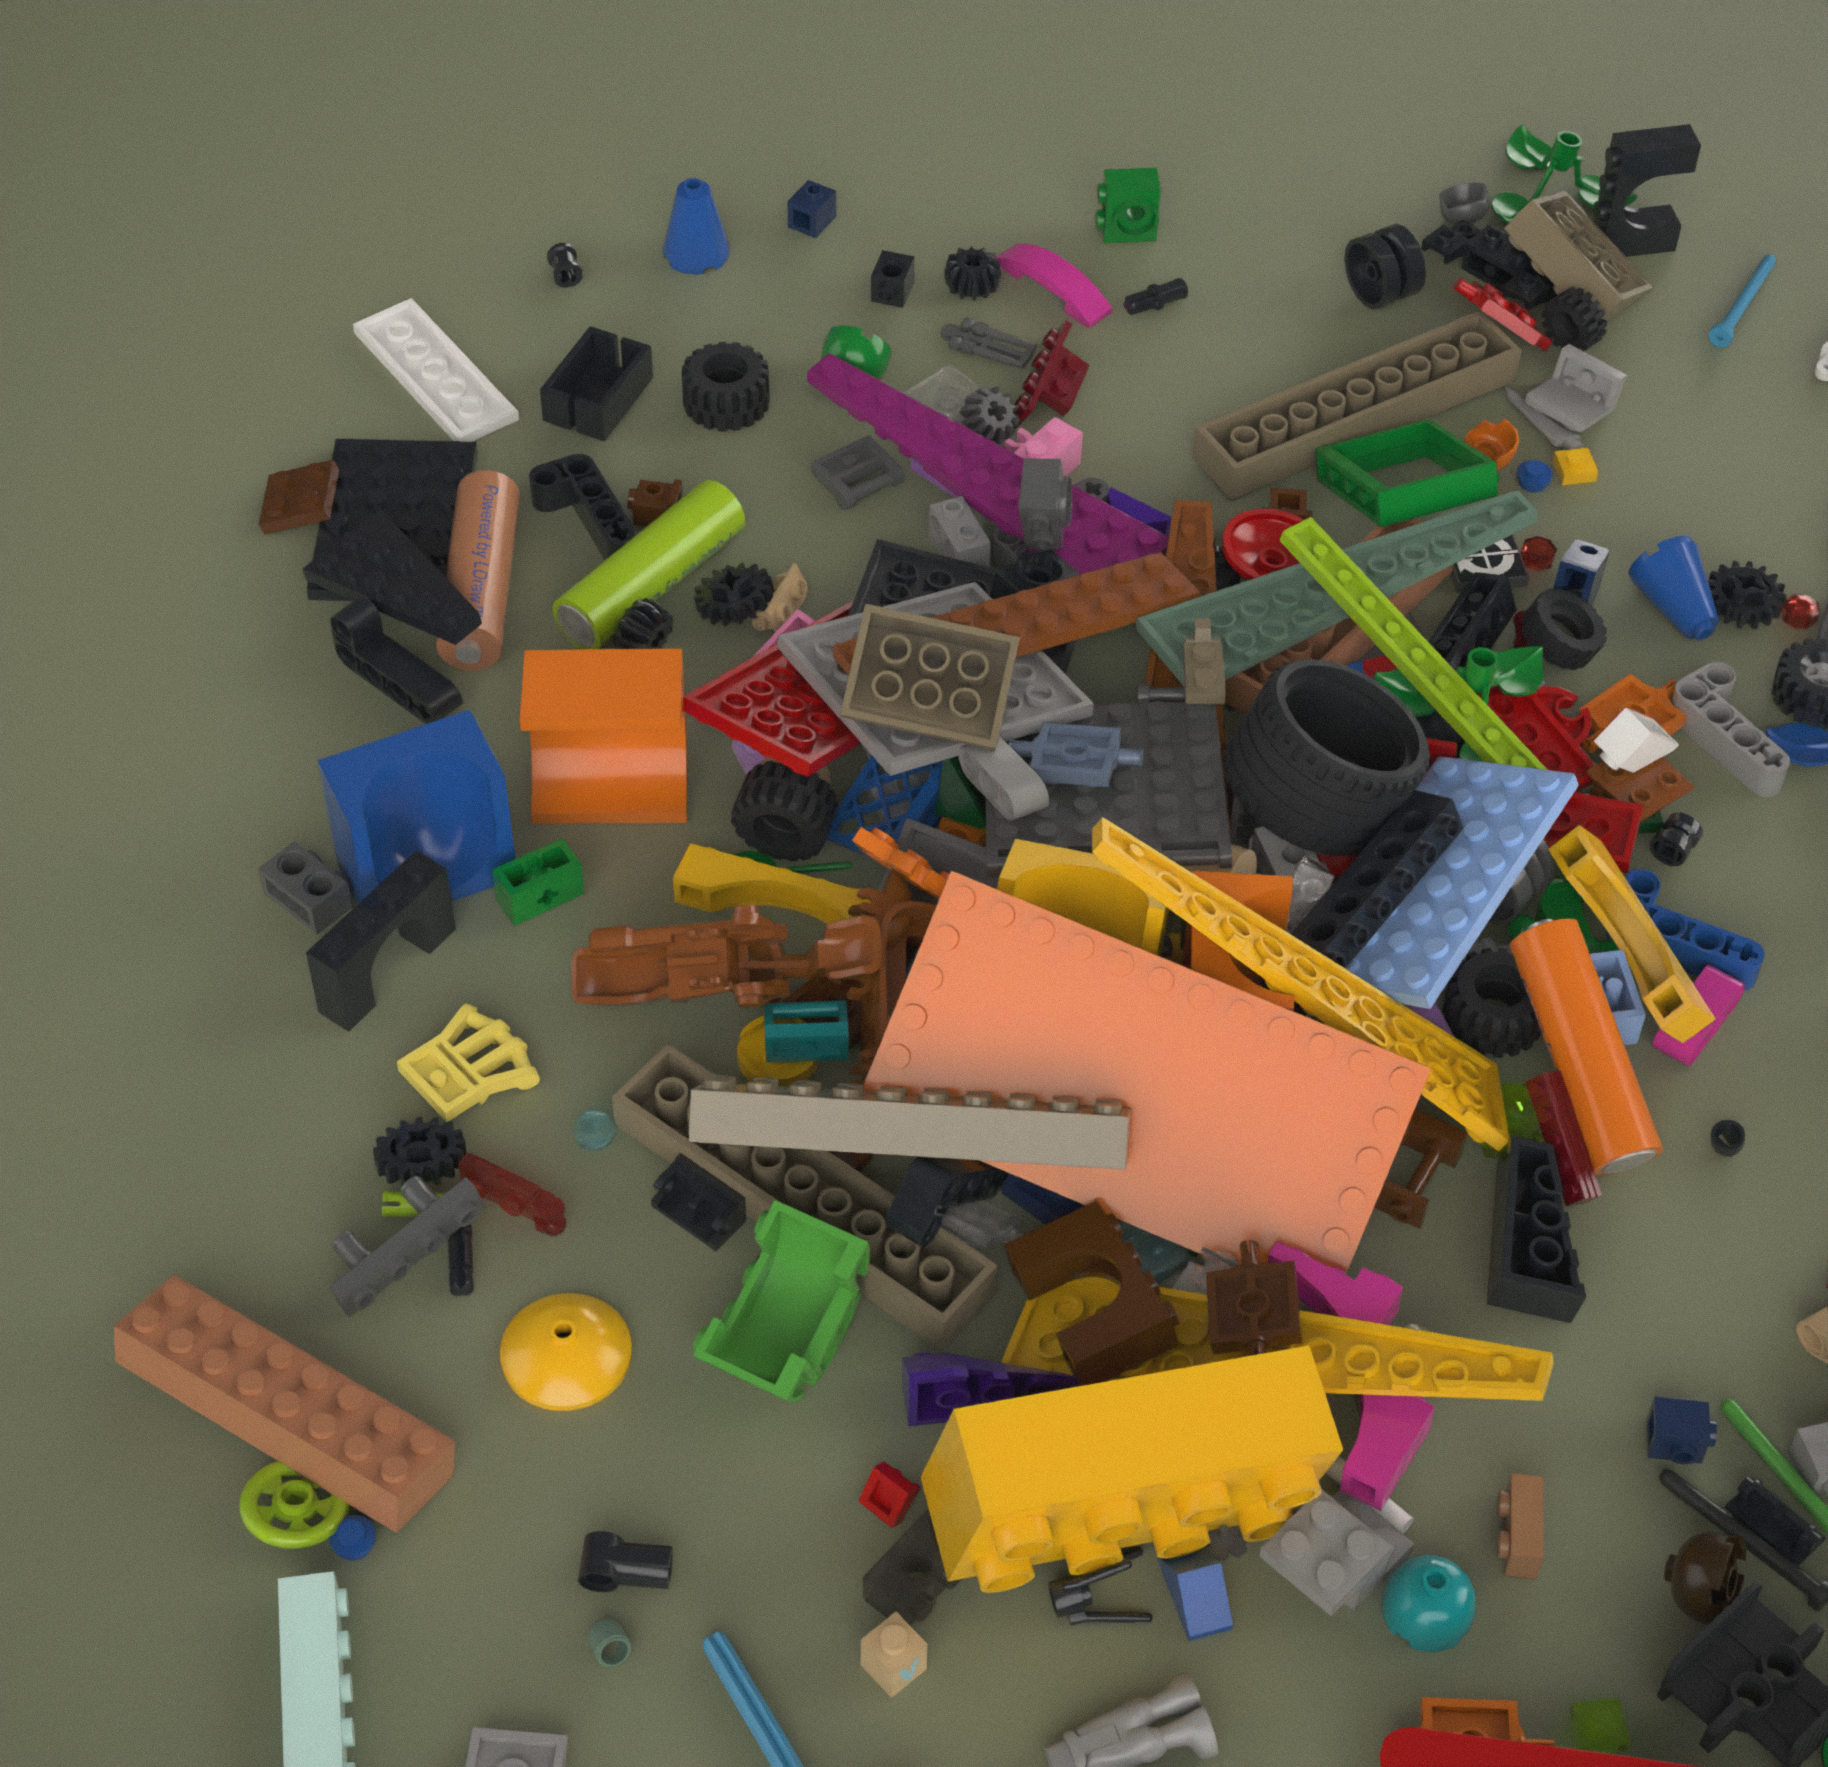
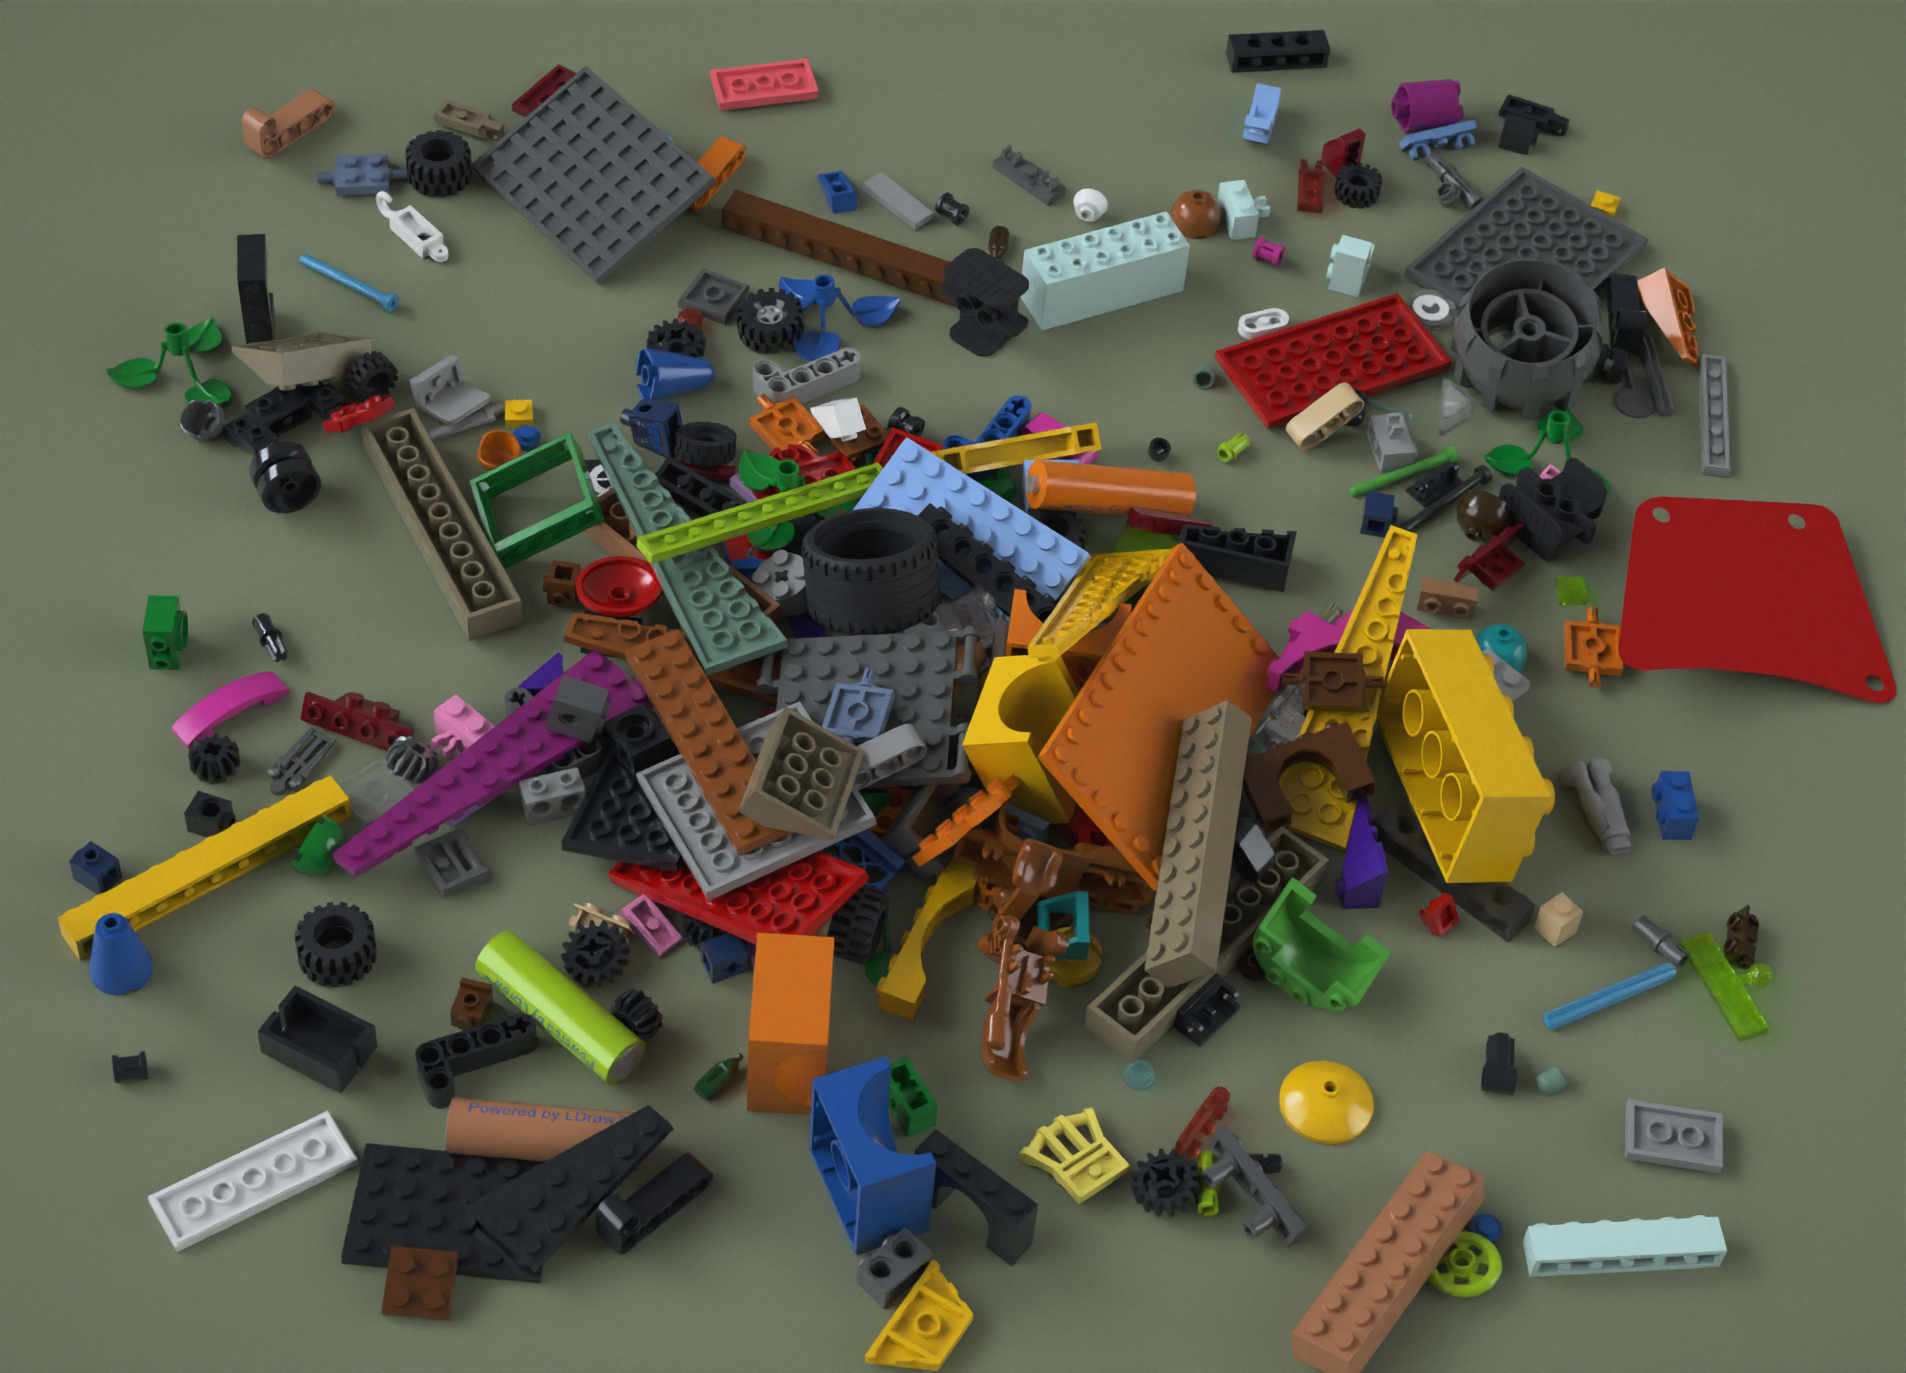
camera: 90 degrees left, 0 degrees up
(232, 922) = (923, 1325): none -> yellow wing
(827, 284) = (208, 864): none -> yellow brick
(1203, 666) = (772, 628): dark tan hinge -> none
(1613, 1592) = (1493, 562): none -> dark red bracket
(1765, 1236) = (1229, 450): none -> lime pin

